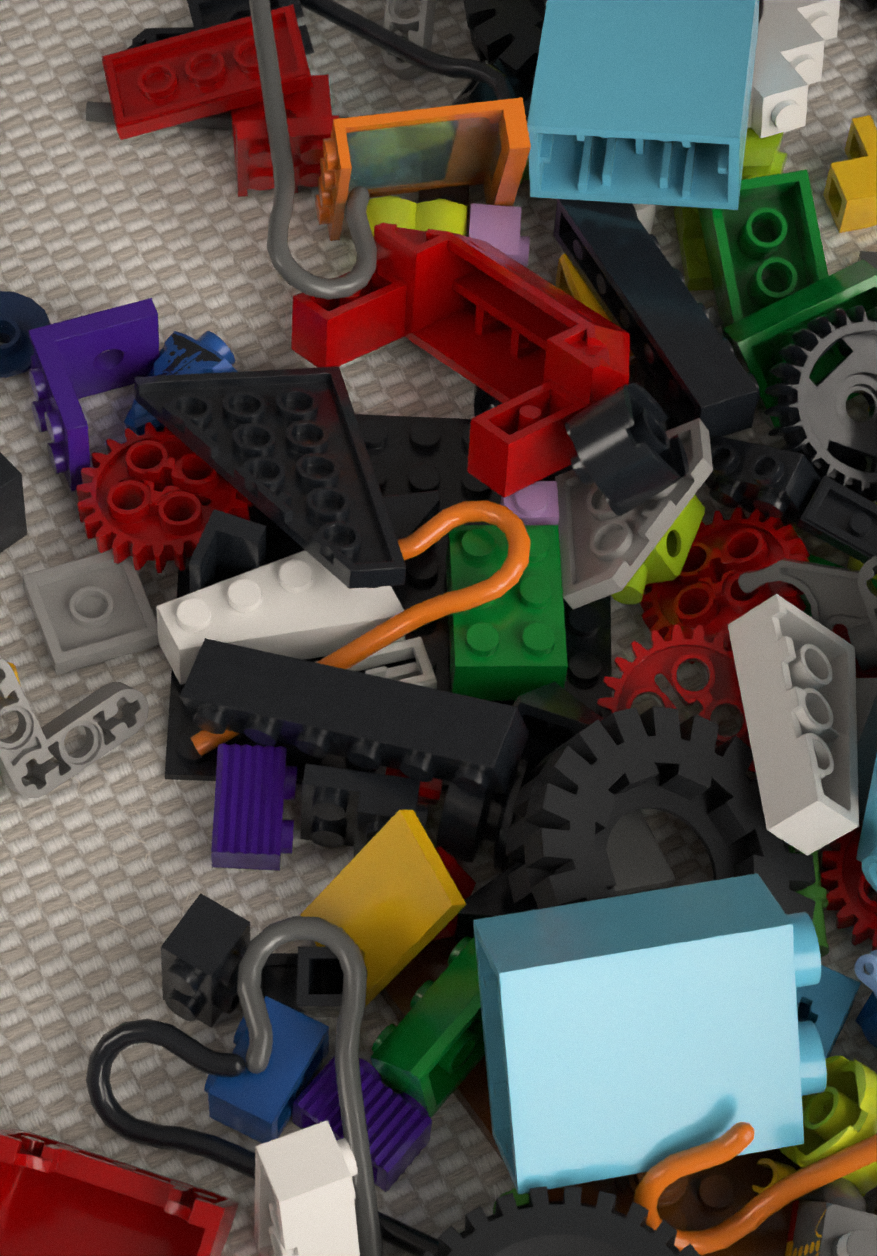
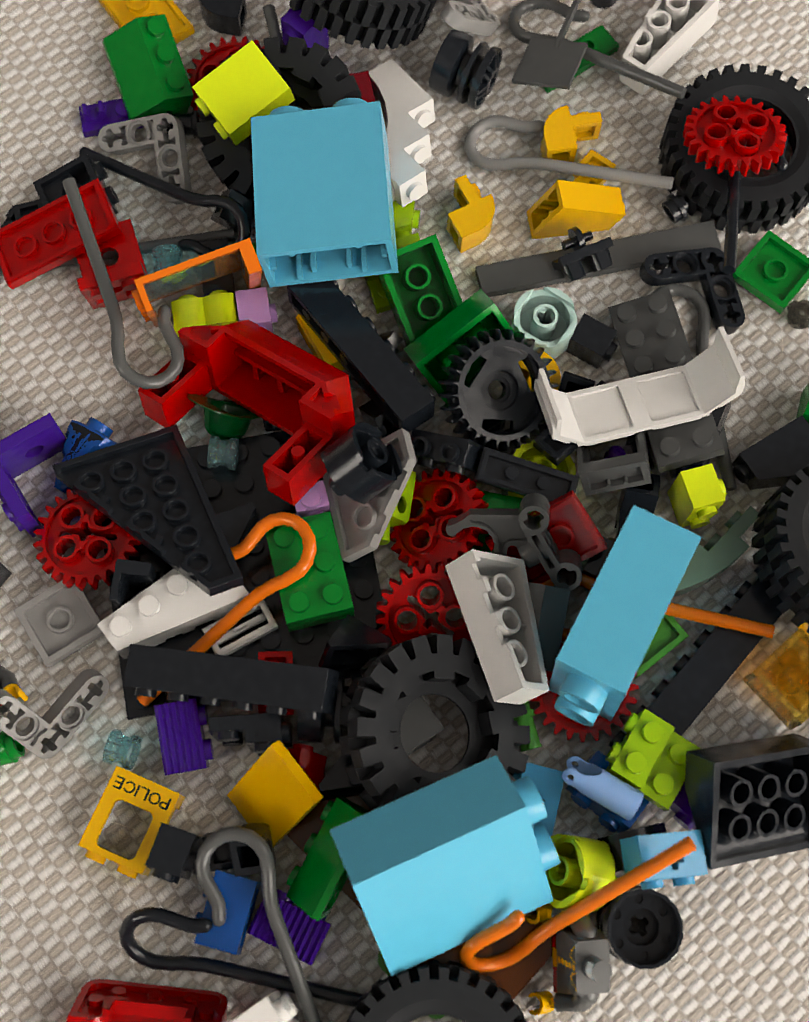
camera: 10 degrees left, 15 degrees up
(149, 808) = (122, 749): none -> clear light blue wheel
(164, 867) = (143, 794): none -> yellow window
(403, 422) = (223, 452): none -> clear light blue wheel
(414, 382) = (224, 417): none -> dark green piece

